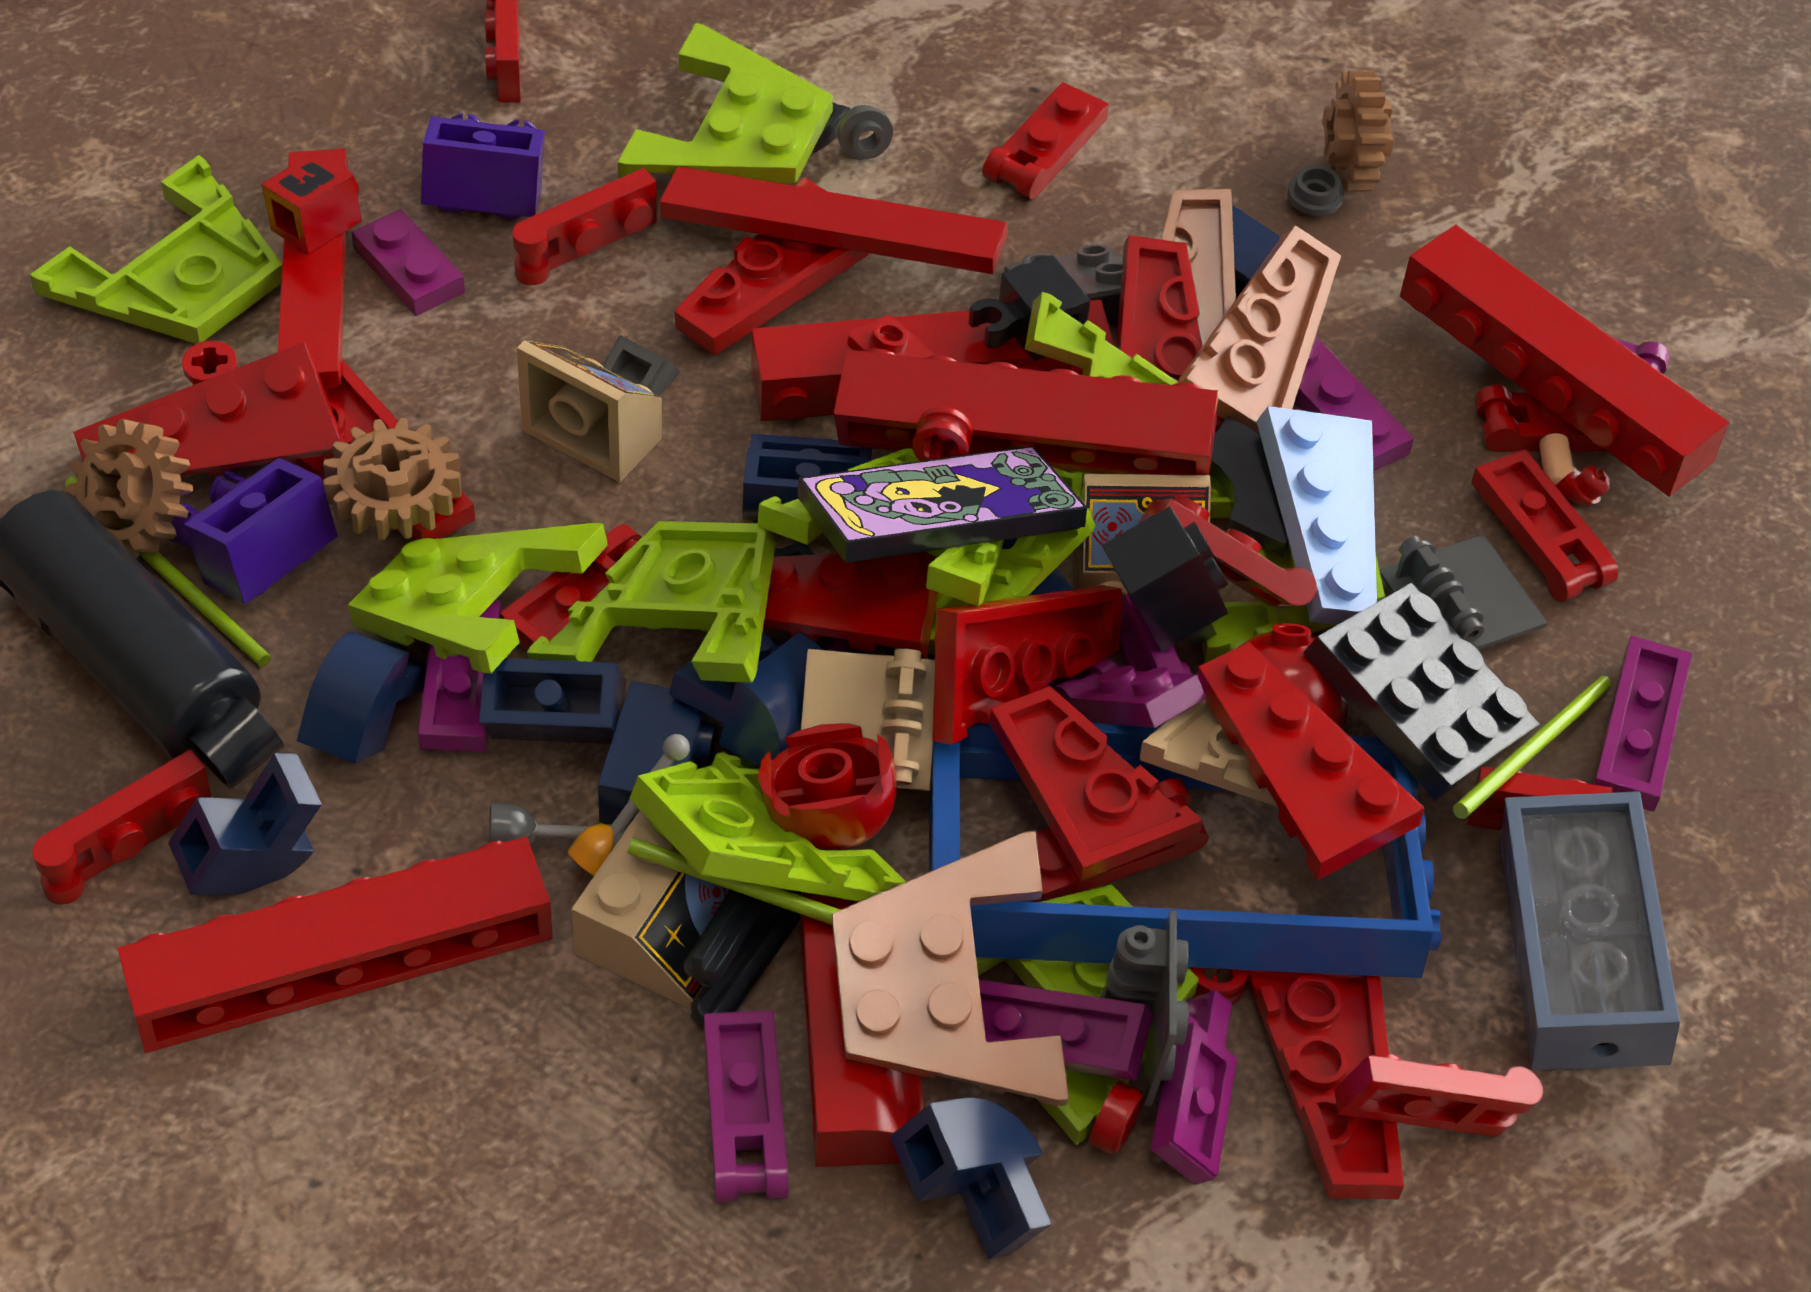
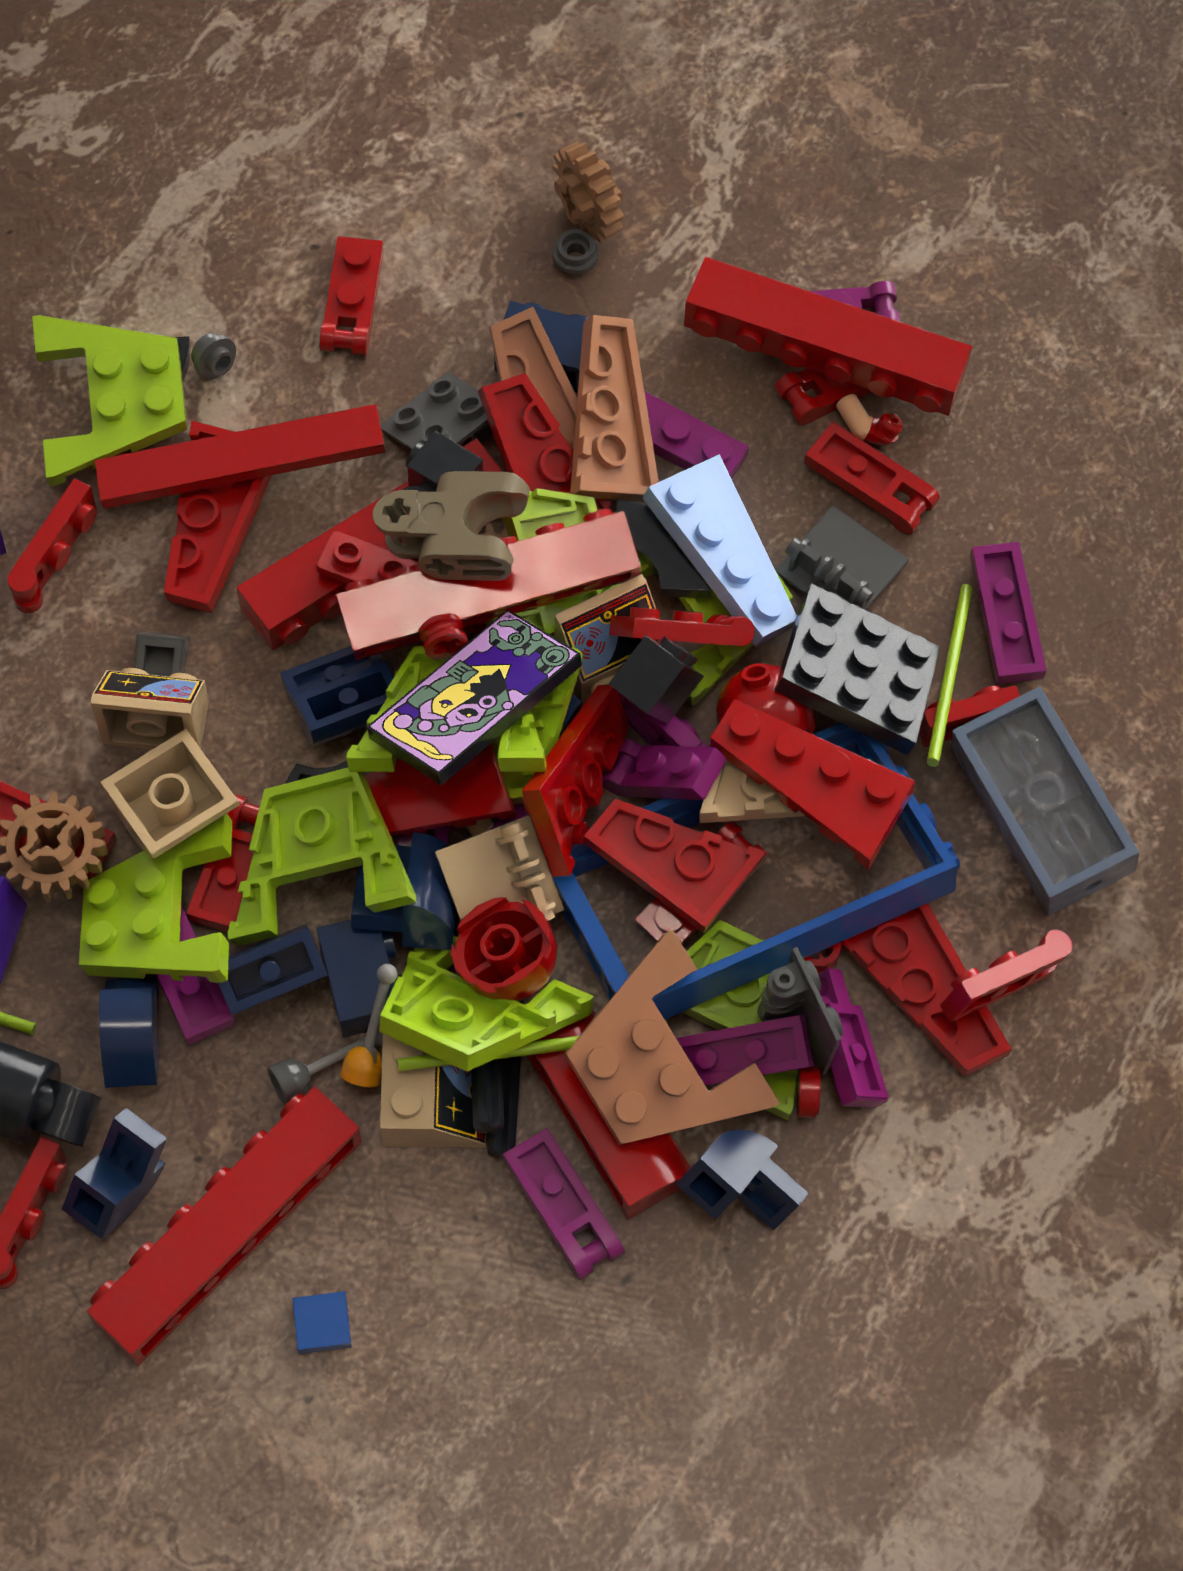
camera: 25 degrees left, 15 degrees up
(382, 1103) = (322, 1322): none -> blue tile
(551, 479) = (168, 794): none -> tan slope
(1011, 329) = (446, 524): none -> dark tan piece

